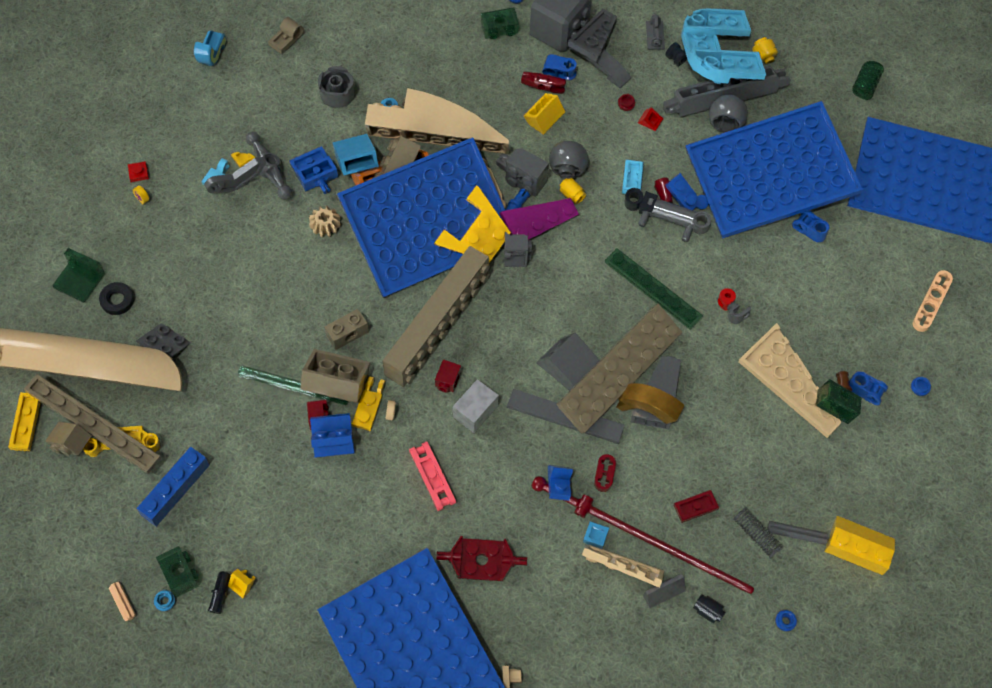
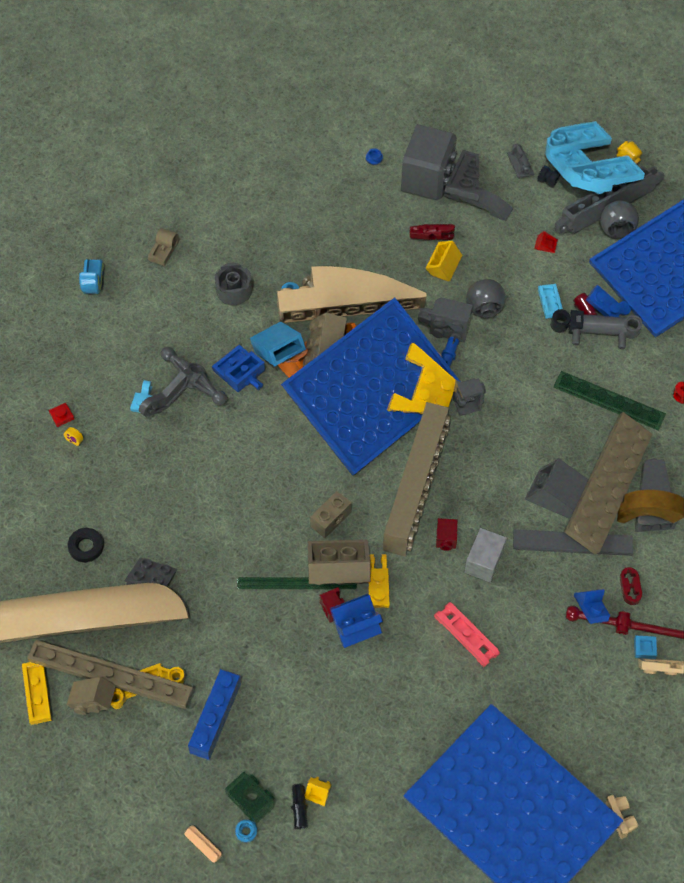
camera: 15 degrees left, 5 degrees down
(79, 276) = (39, 532): clear green bracket -> none
(242, 158) = (163, 377): yellow tile -> none
(319, 226) = (269, 416): tan gear -> none
(390, 410) = (403, 581): tan tile -> none
(466, 551) = (560, 693): dark red plate -> none
(499, 23) = (369, 186): clear green brick -> none
(538, 218) = (478, 360): magenta wing -> none
(559, 66) = (442, 213): blue piece -> none
(572, 190) = (498, 327): yellow brick -> none
(626, 102) = (517, 232): dark red plate -> none

